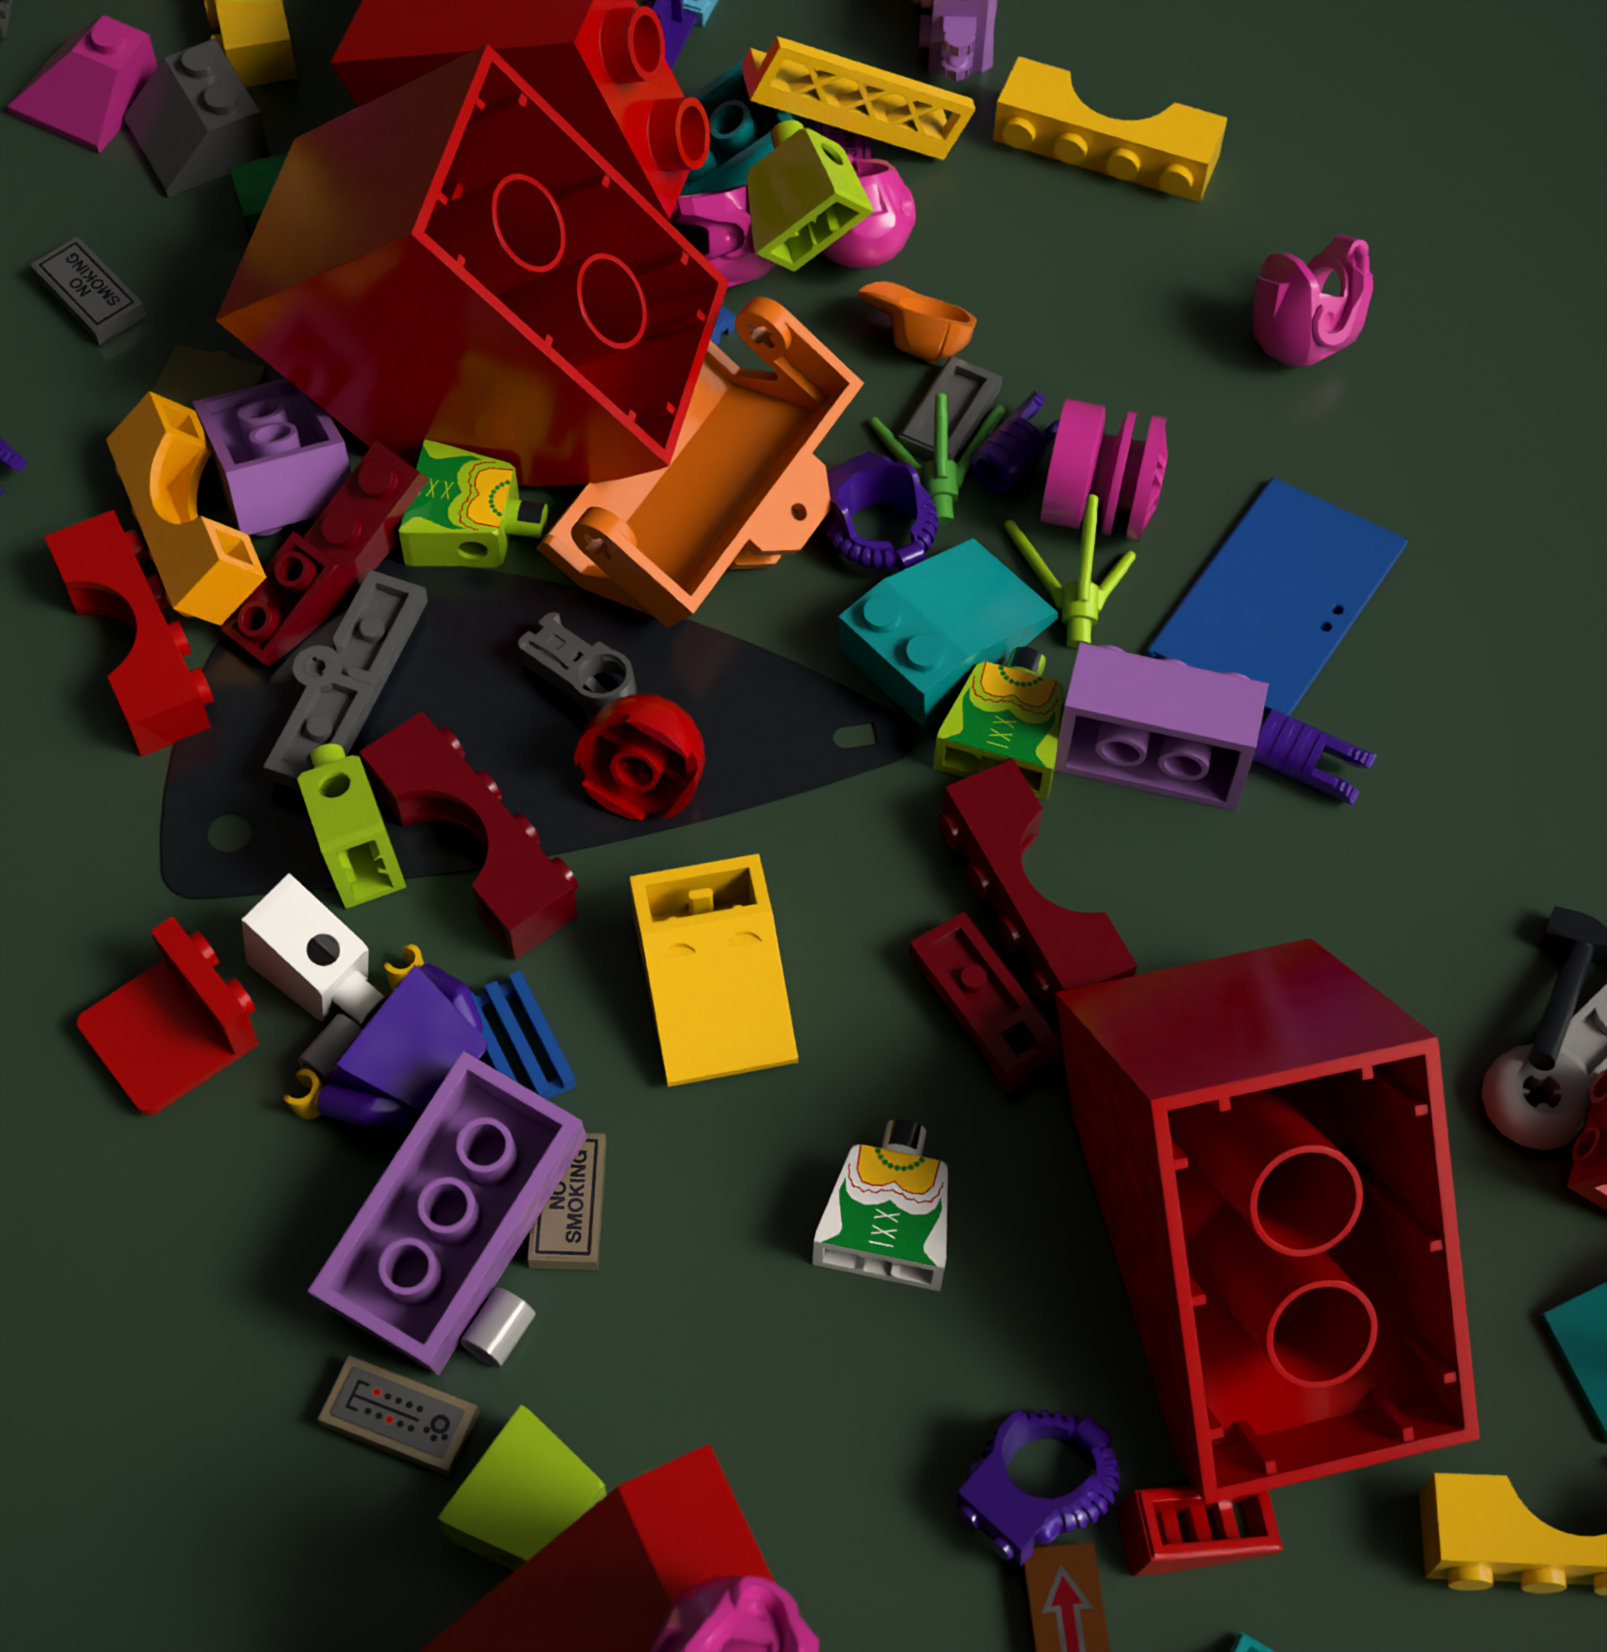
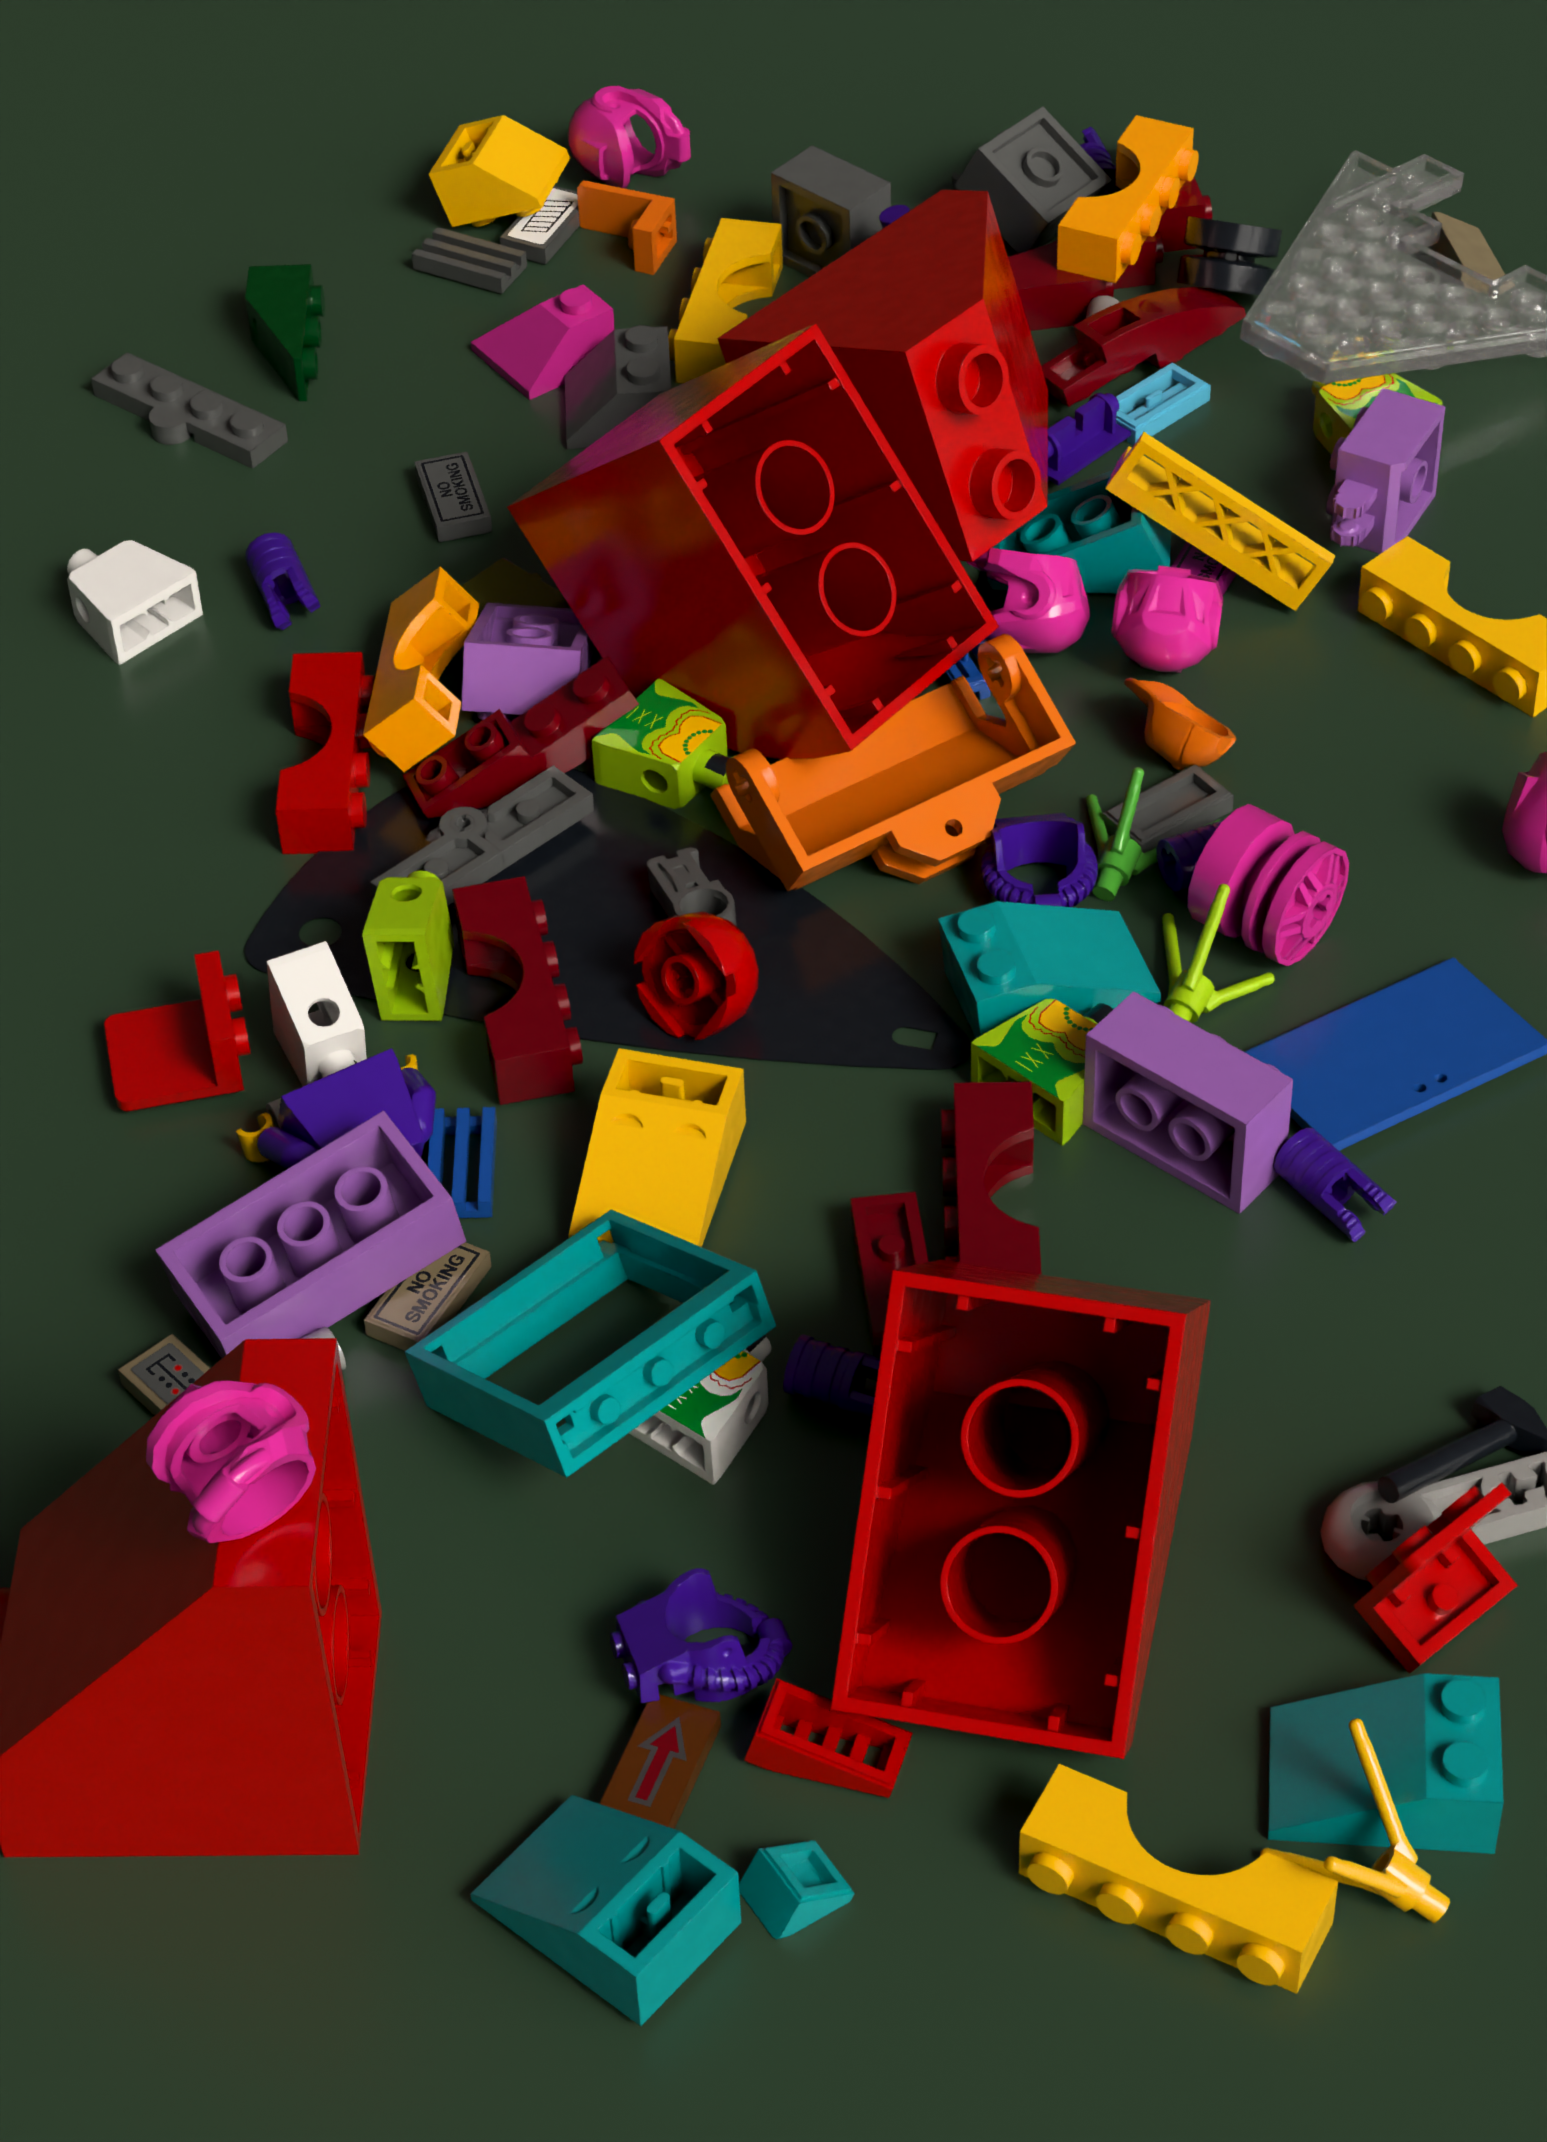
camera: 30 degrees right, 15 degrees down
(802, 196) = (1104, 577): lime torso -> none
(867, 1240) = (718, 1319): none -> teal window
(1000, 1135) = (831, 1375): none -> dark purple hinge

